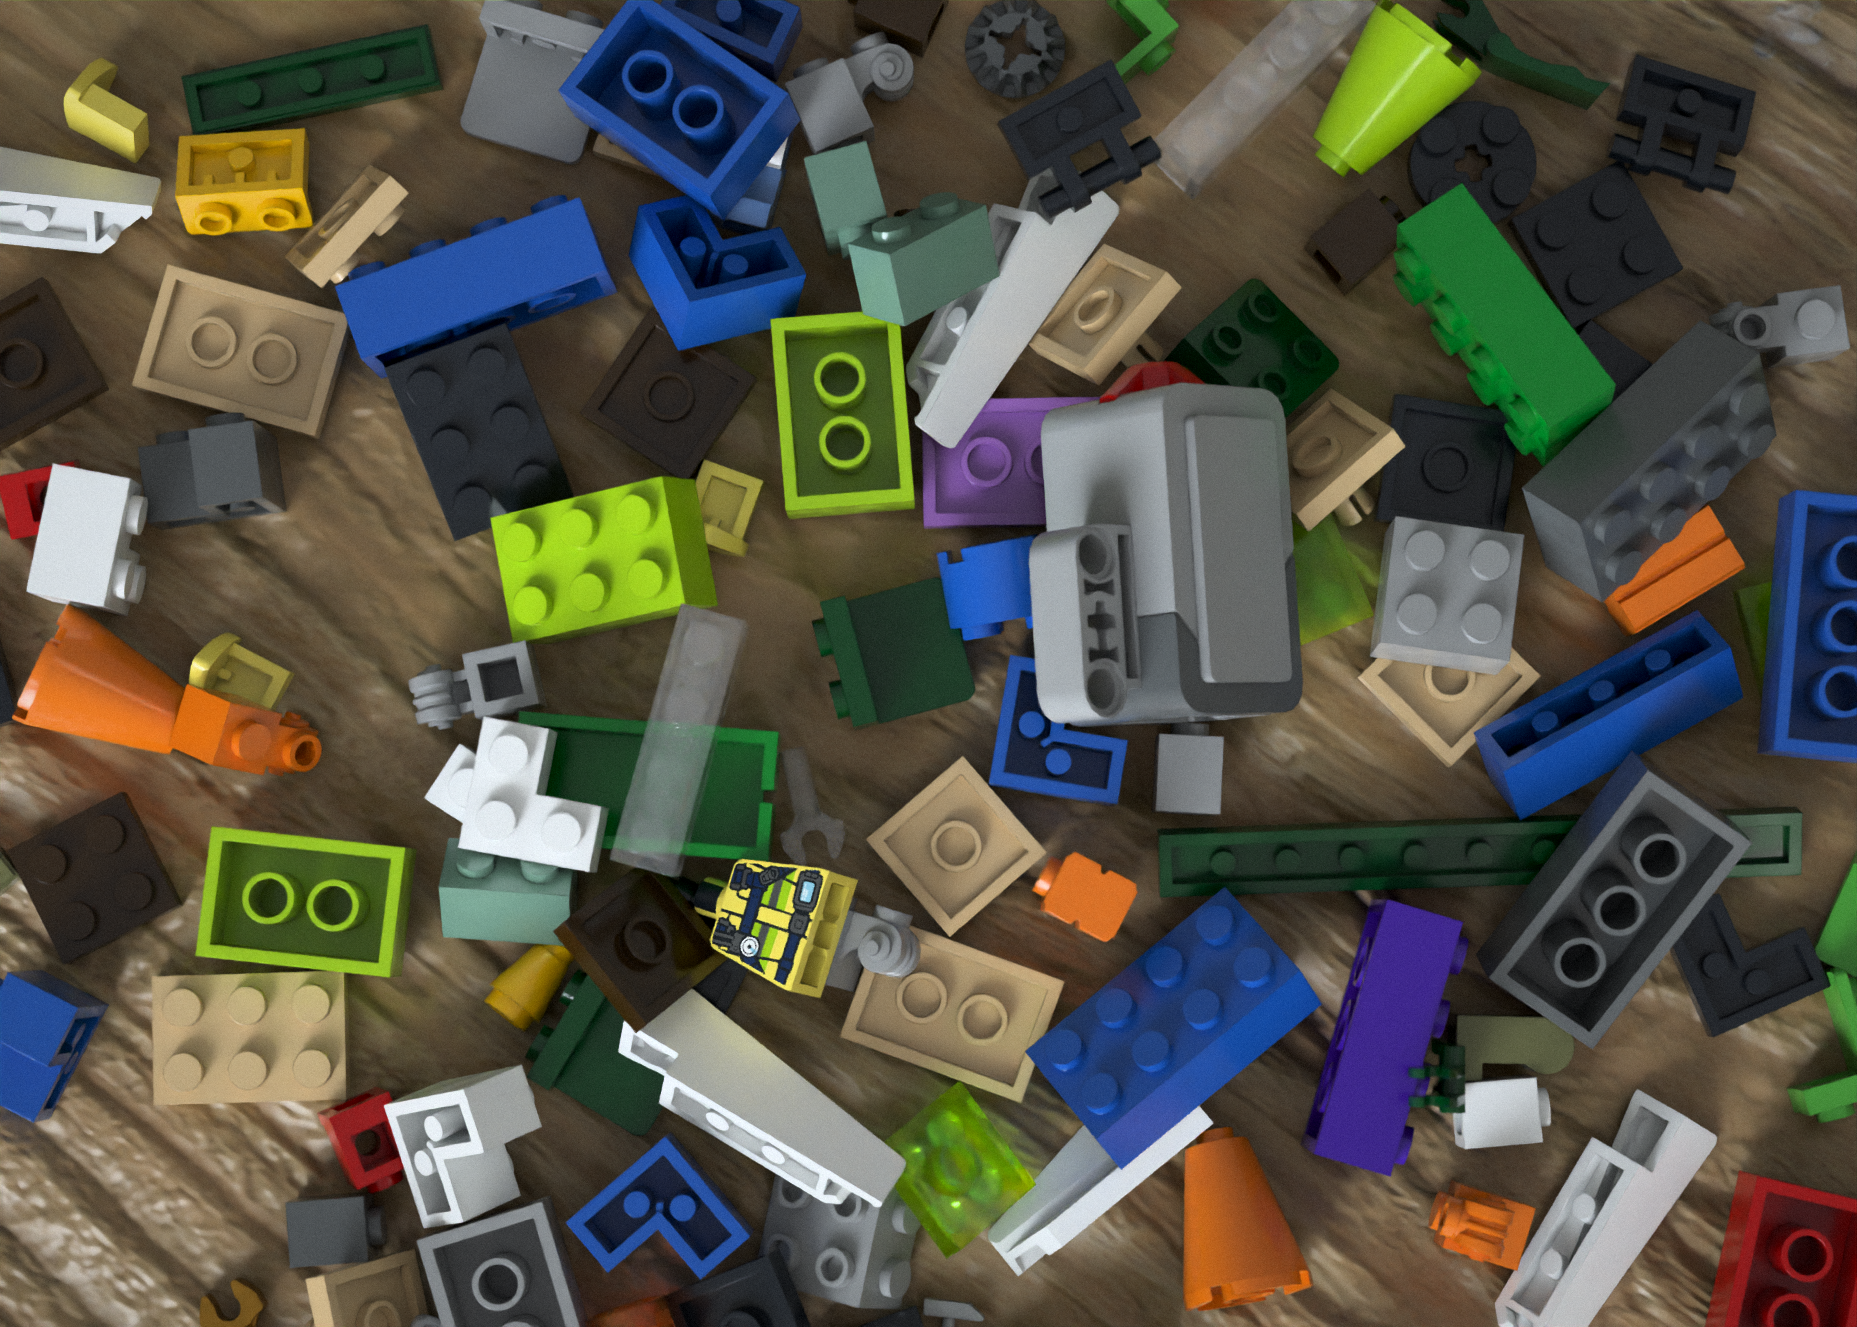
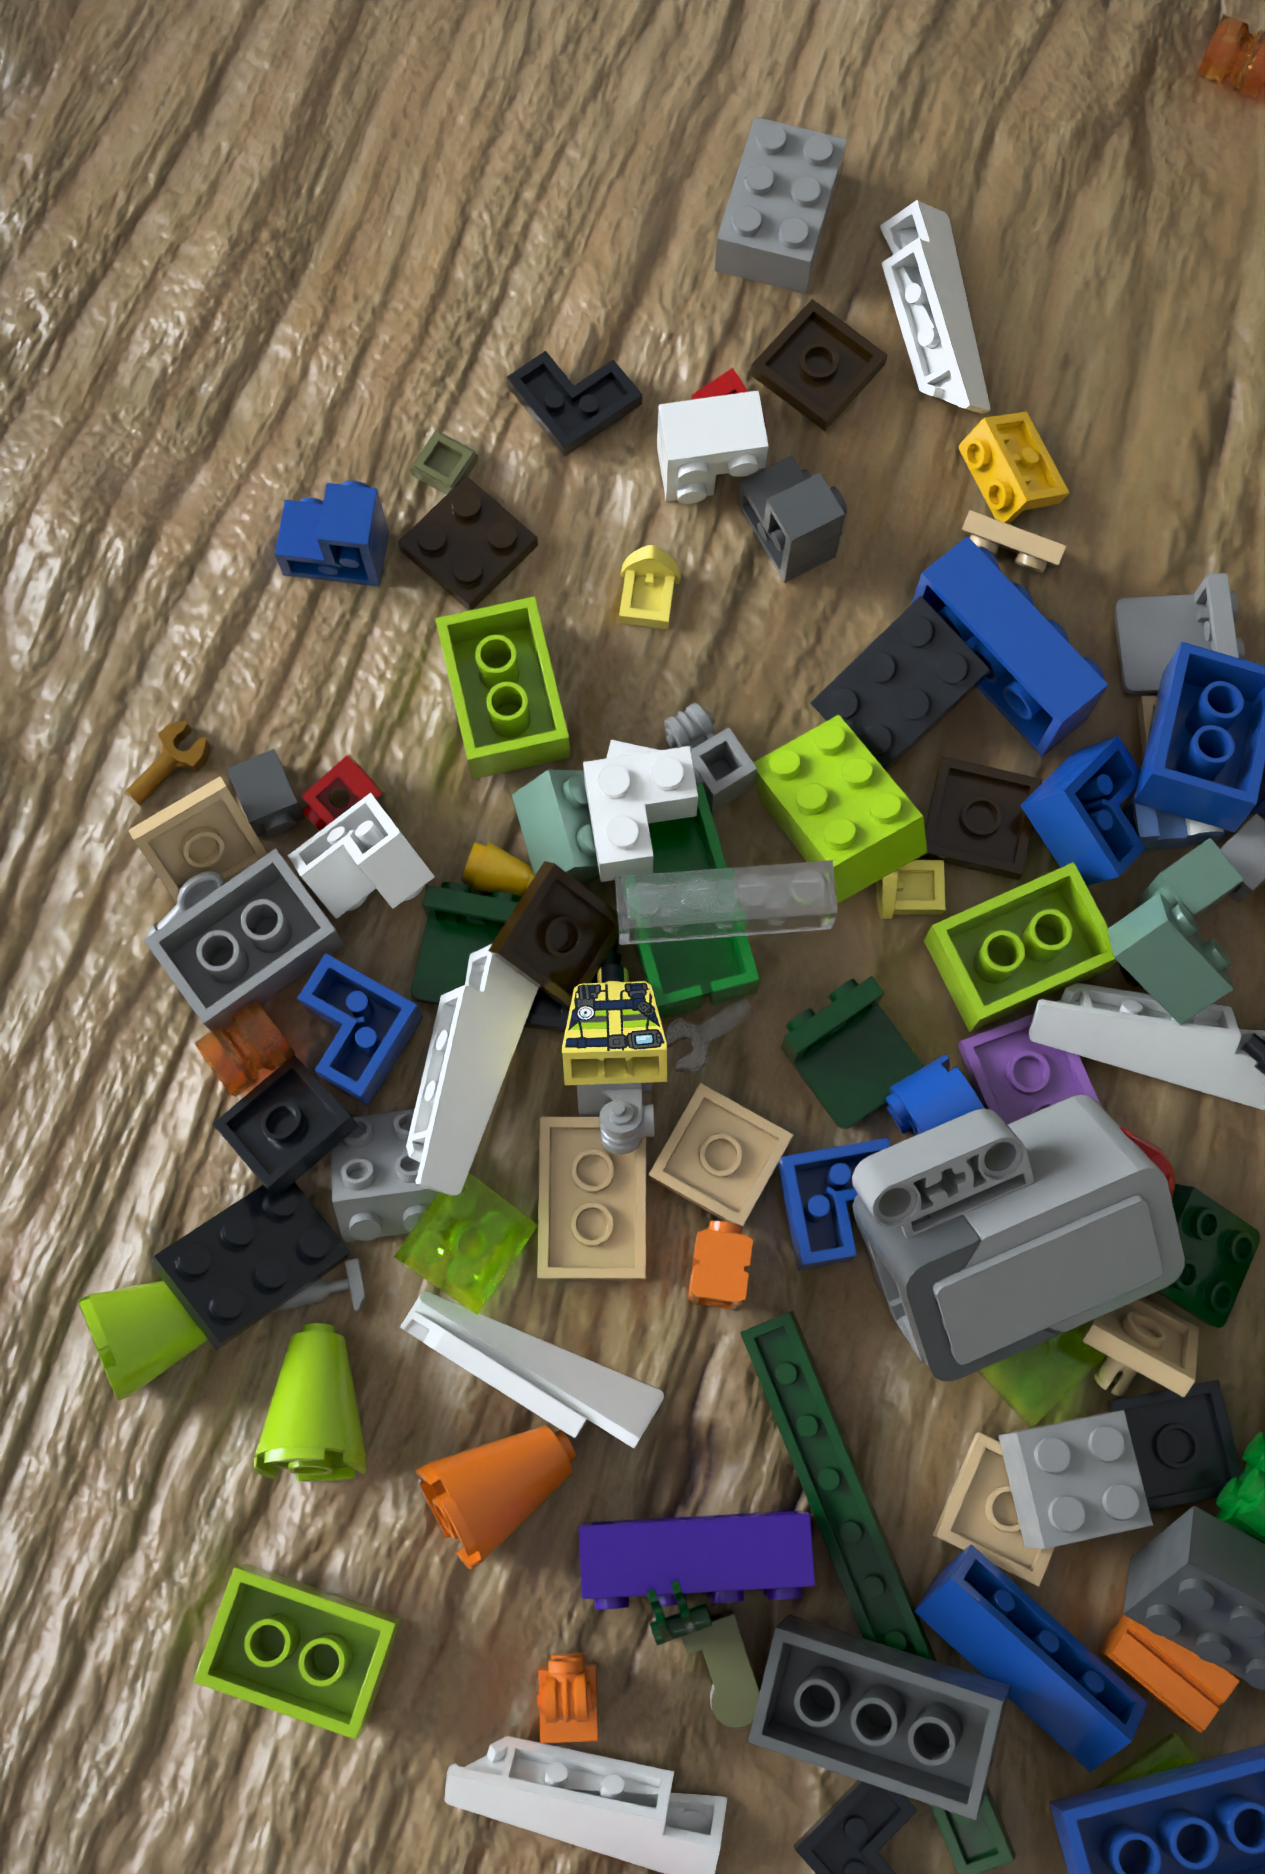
camera: 70 degrees right, 10 degrees down
(99, 688) = (606, 494): orange cone -> none
(104, 116) = (1020, 354): light yellow tile -> none
(242, 351) = (891, 507): tan plate -> none
(243, 734) = (610, 600): orange brick -> none
(250, 1037) = (390, 690): tan plate -> none
(313, 82) = (1106, 492): dark green tile -> none
(1106, 316) = (1183, 1121): tan tile -> none
(1174, 1027) = (640, 1377): blue brick -> none
(1188, 771) = (848, 1318): light grey brick -> none
(1502, 1112) = (667, 1683): white brick -> none

